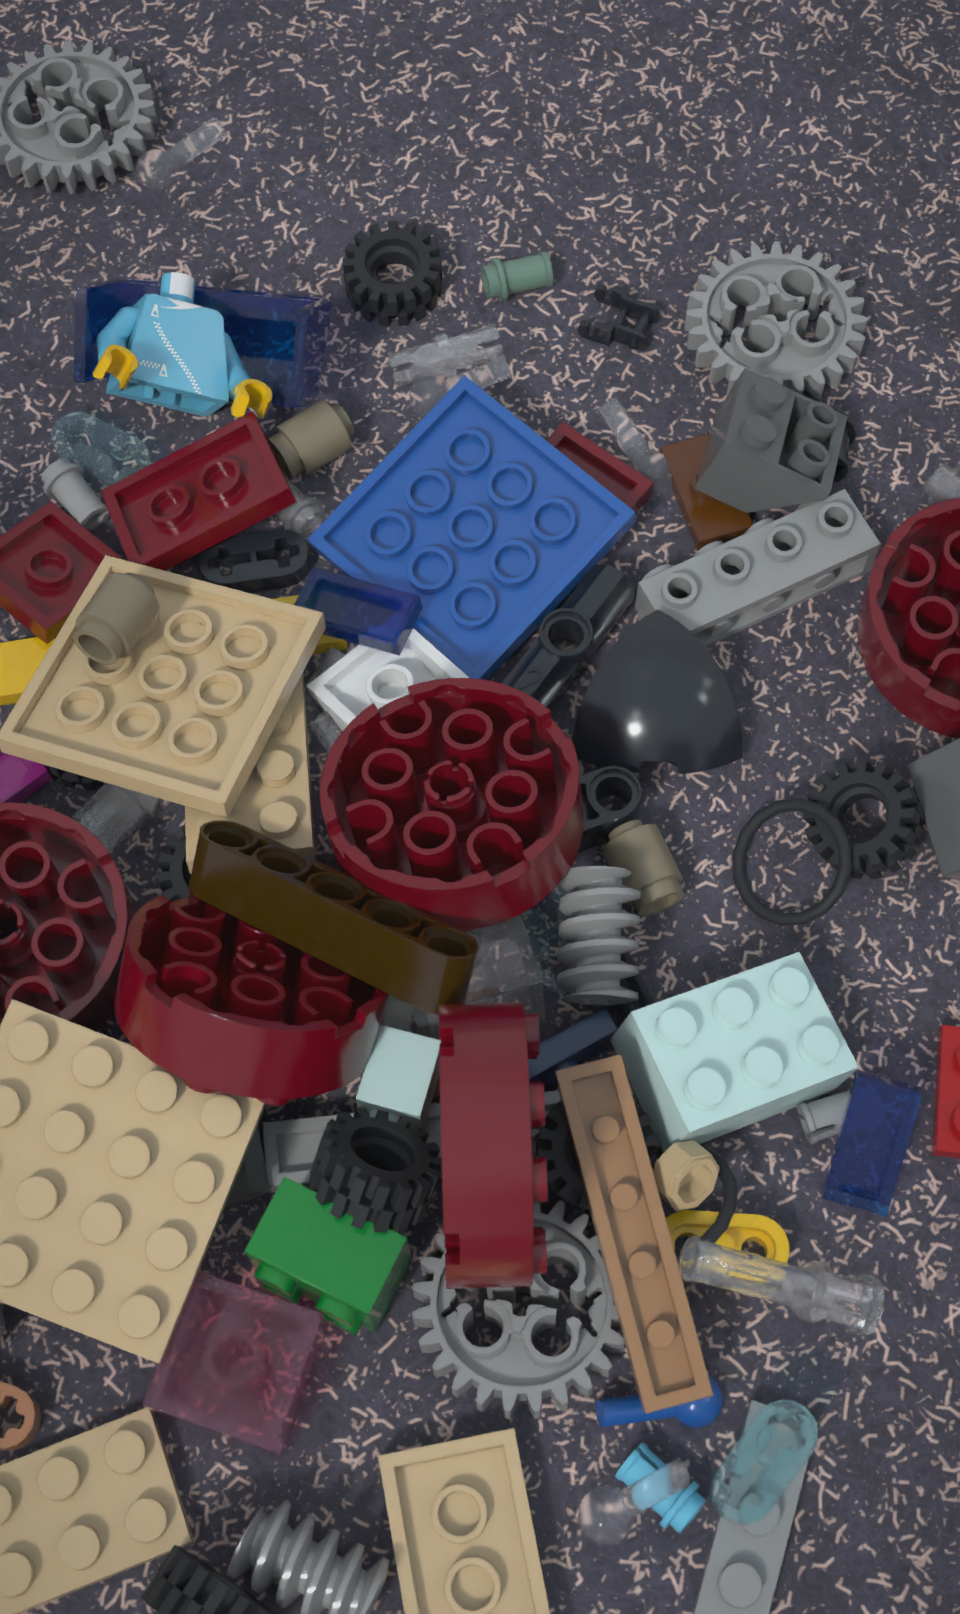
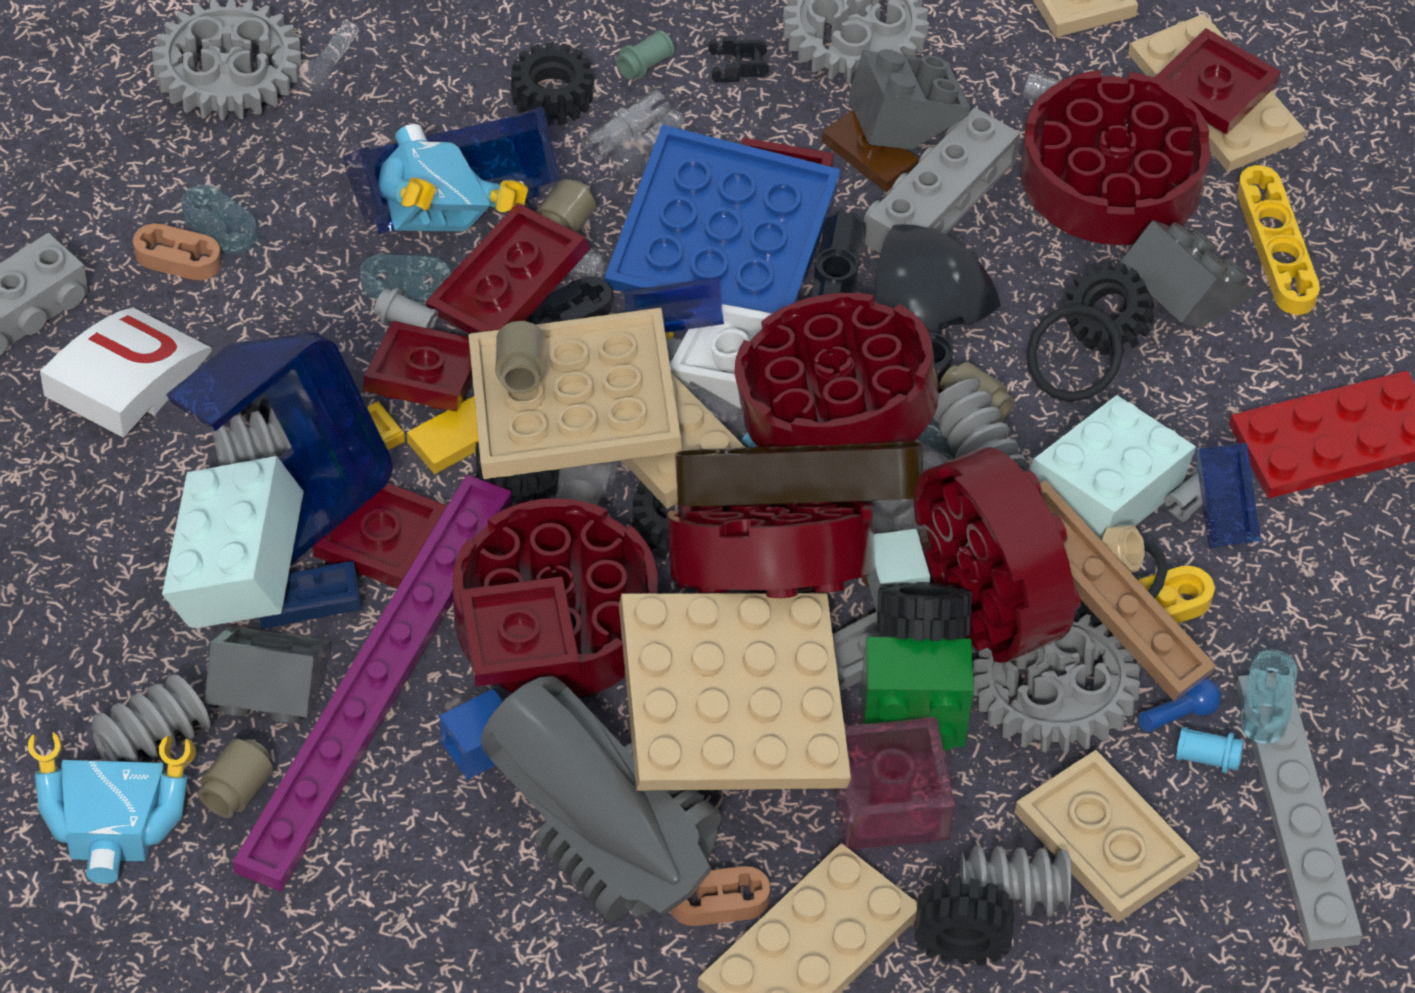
camera: 30 degrees left, 15 degrees down
(609, 1513) = (1185, 779): clear bar -> none
(648, 463) = (801, 137): clear bar -> none
(809, 1289) = (1238, 592): clear pin -> none

